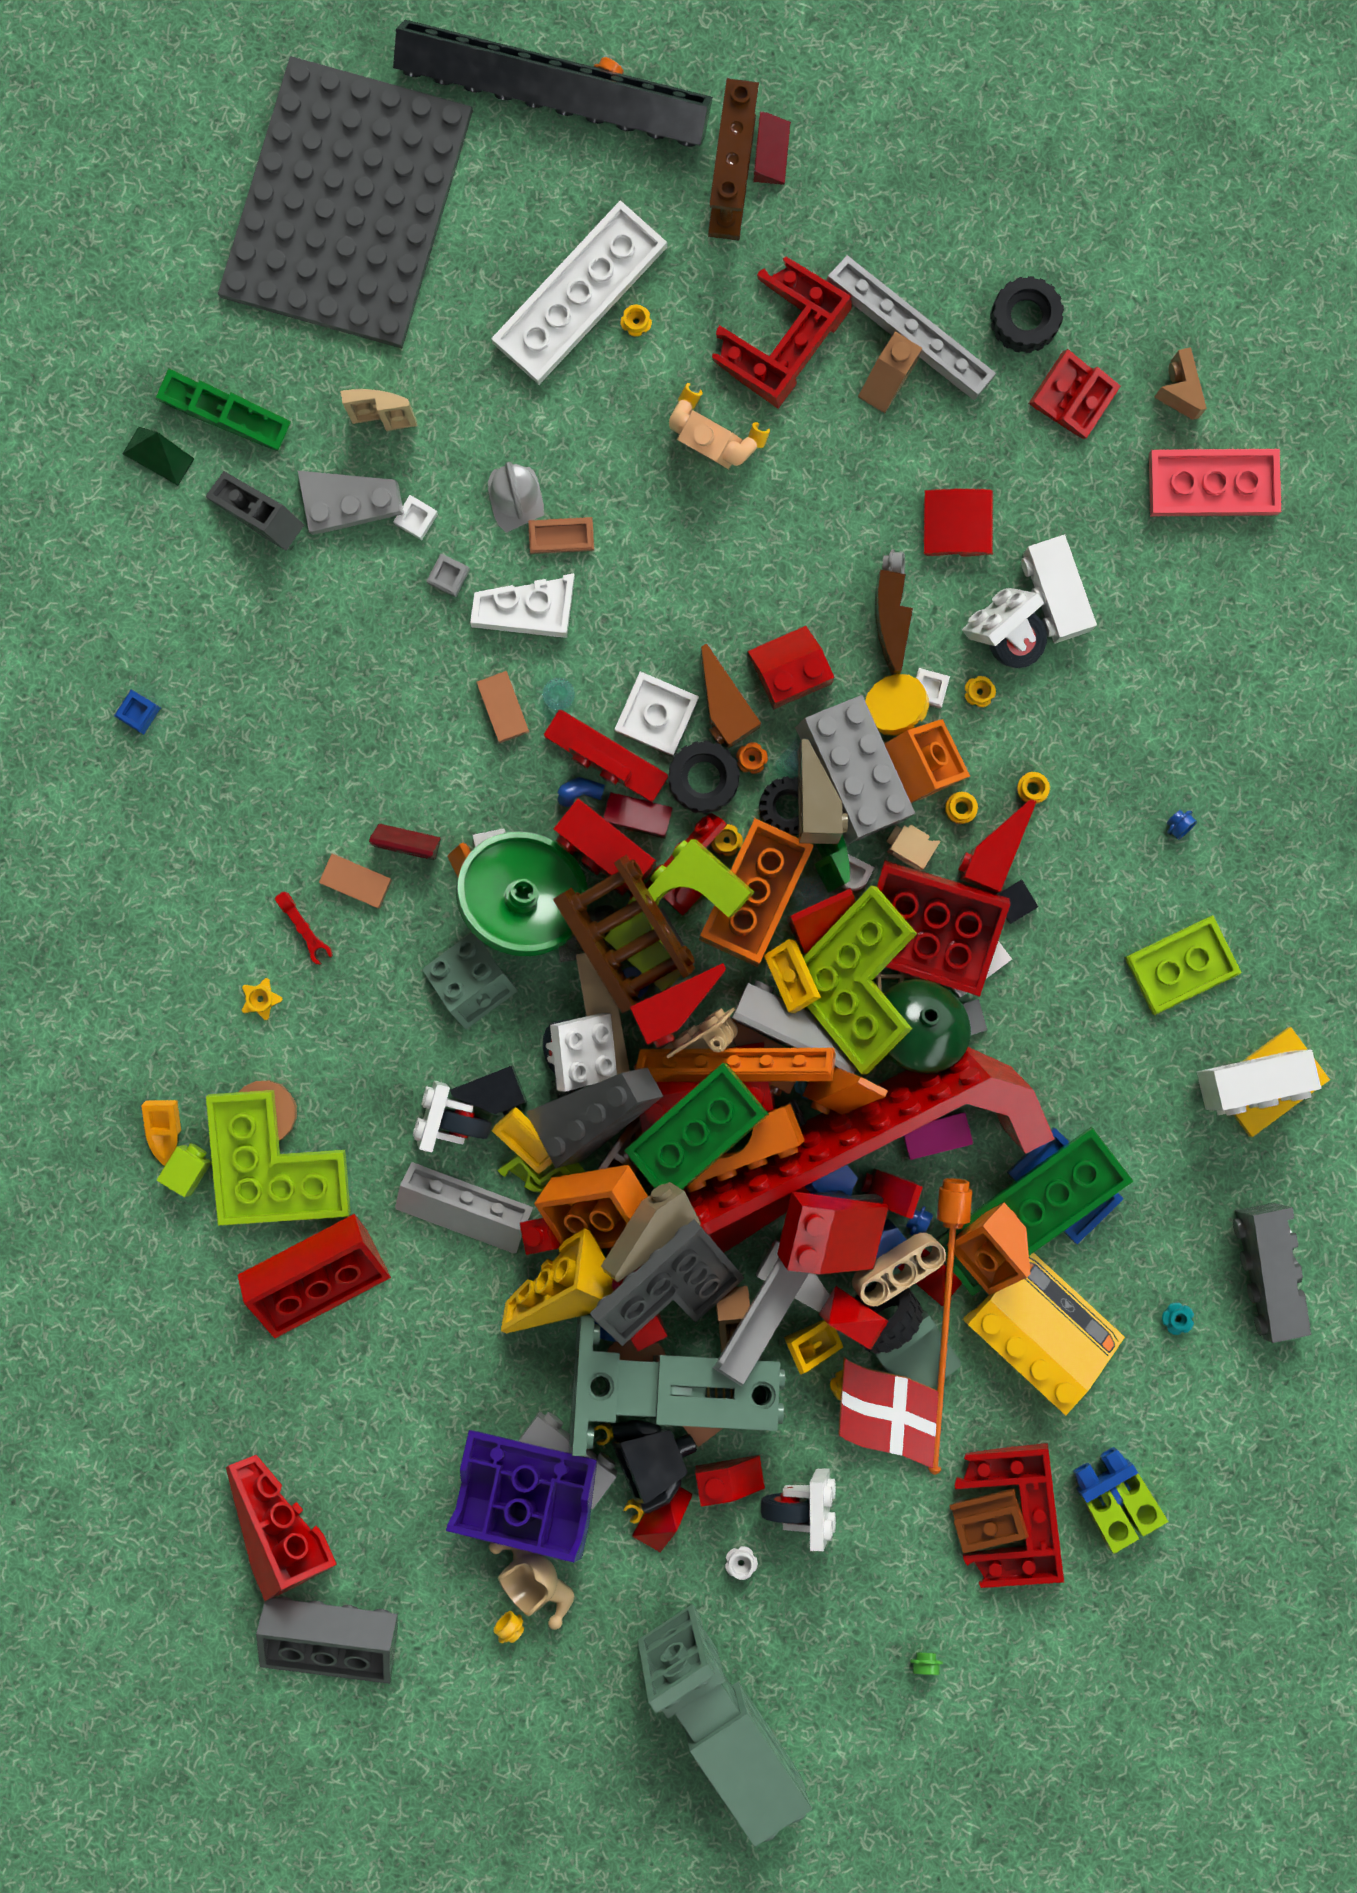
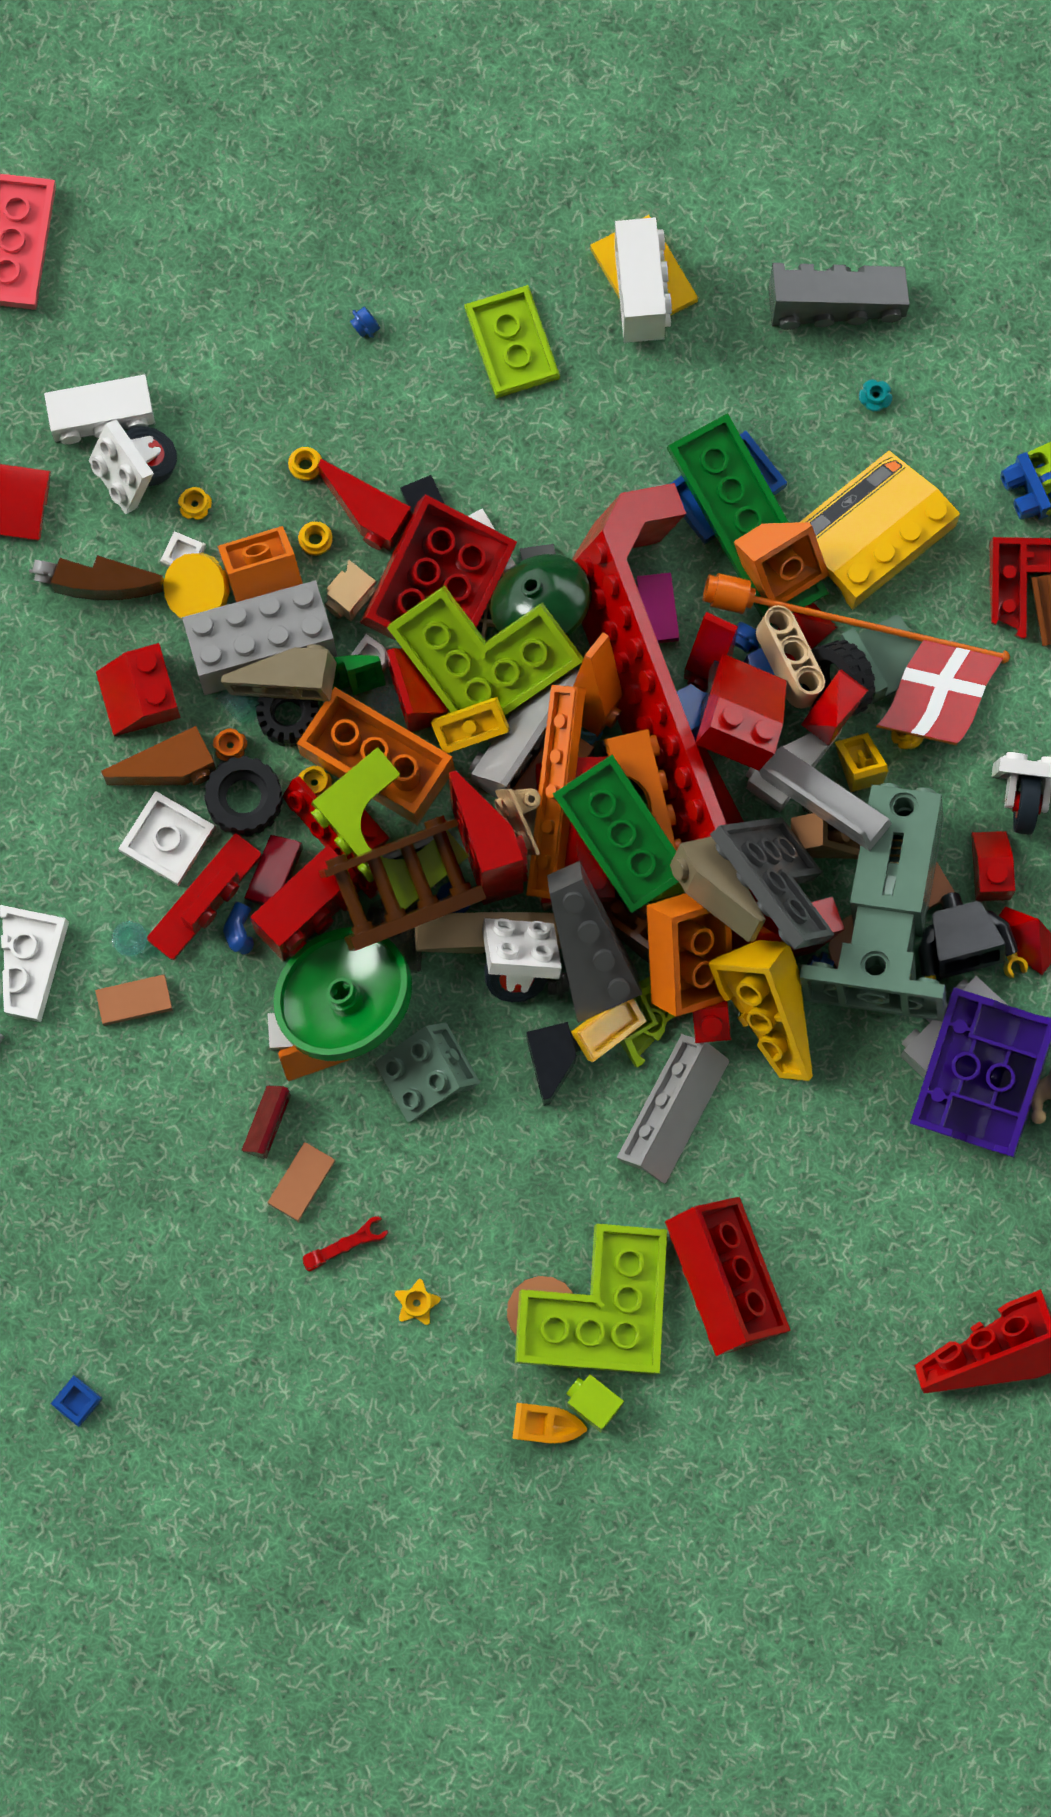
camera: 80 degrees left, 10 degrees down
(459, 1123) = (571, 1116): white plate -> none

